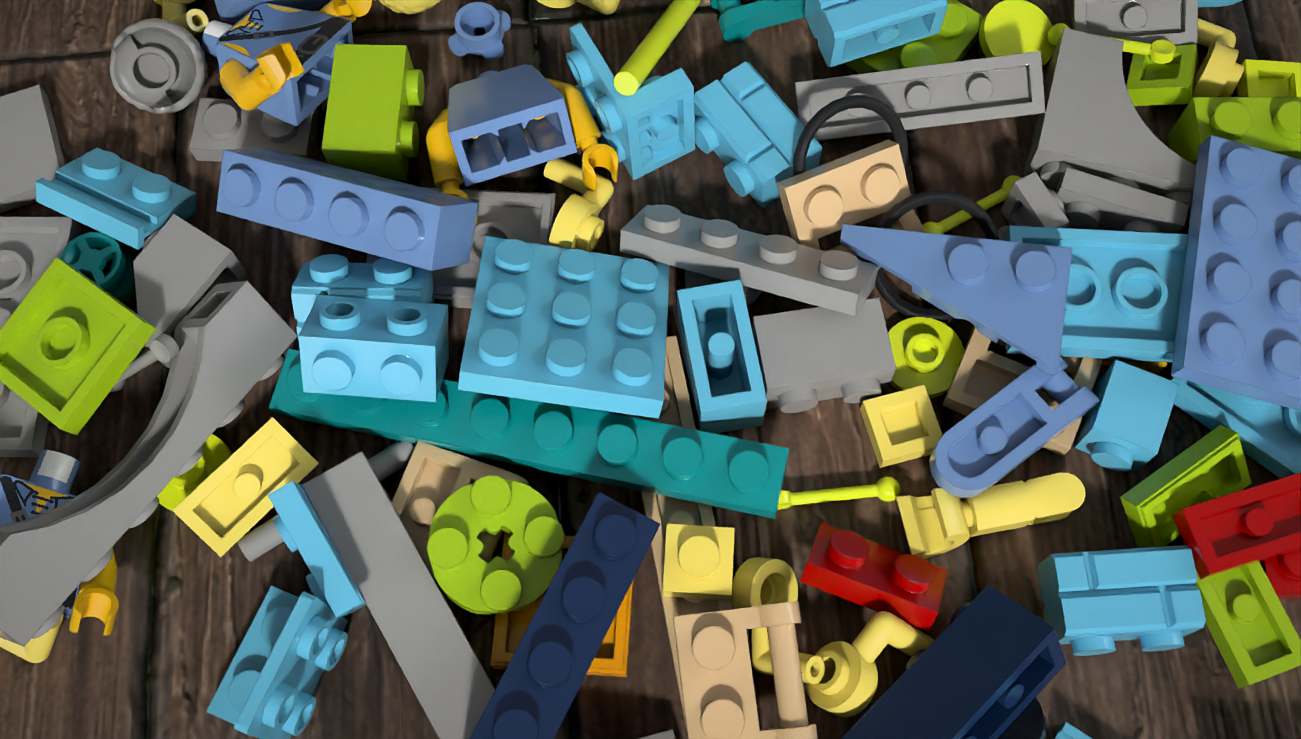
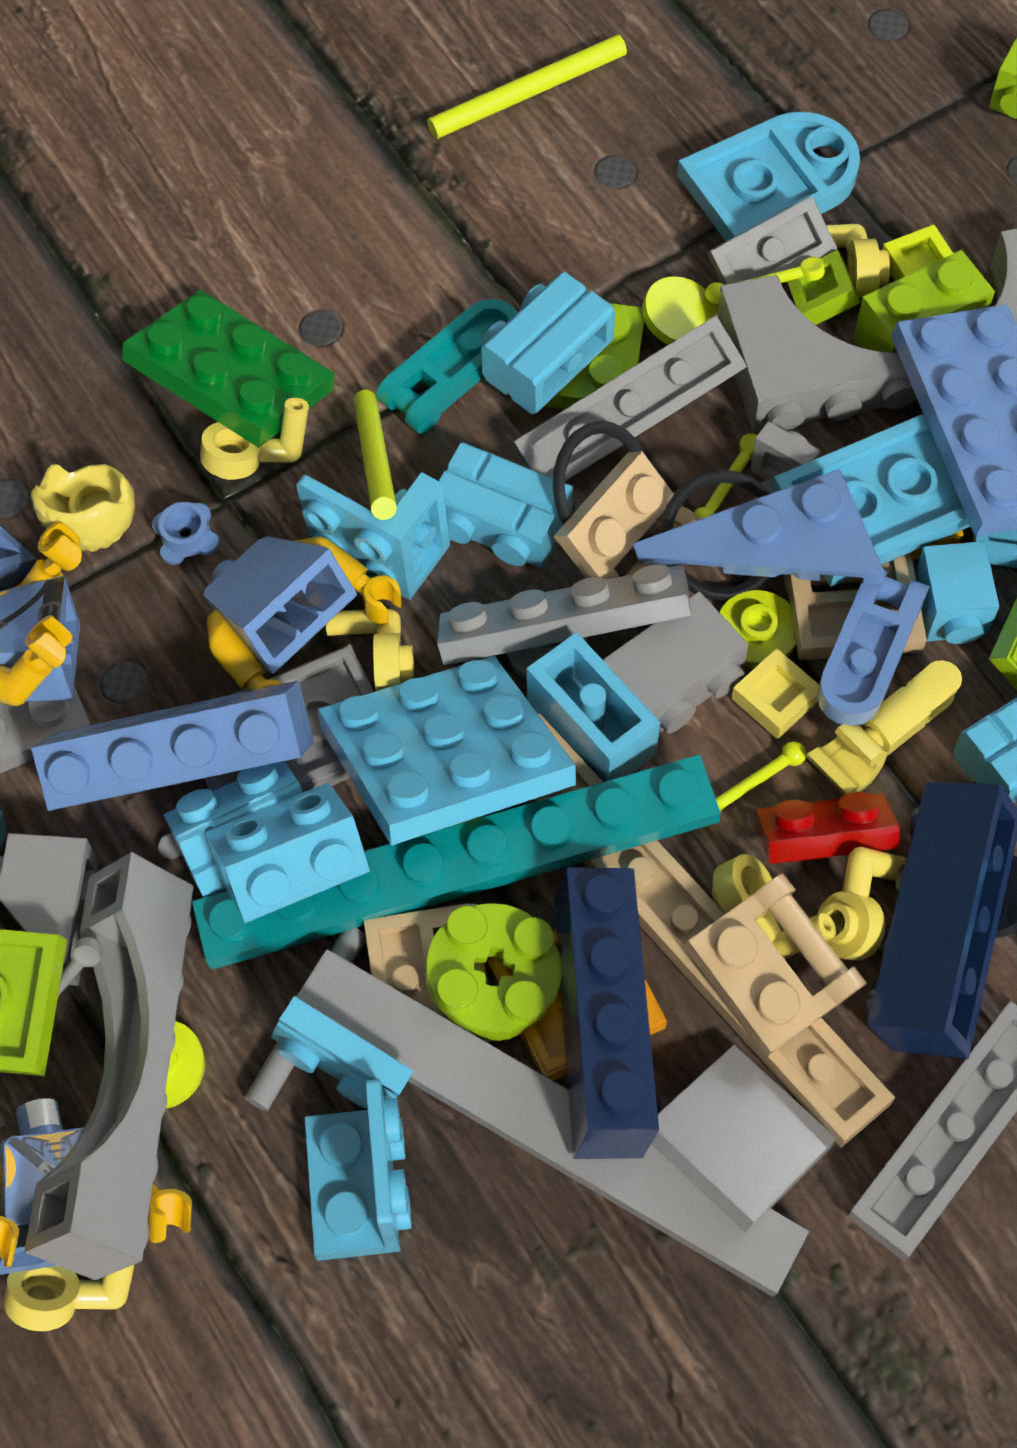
camera: 30 degrees left, 5 degrees down
(238, 490) = (227, 1043): light yellow plate -> none
(373, 109) = (135, 649): lime brick -> none
(698, 562) = (677, 891): light yellow plate -> none
(1109, 205) = (847, 420): light grey plate -> none

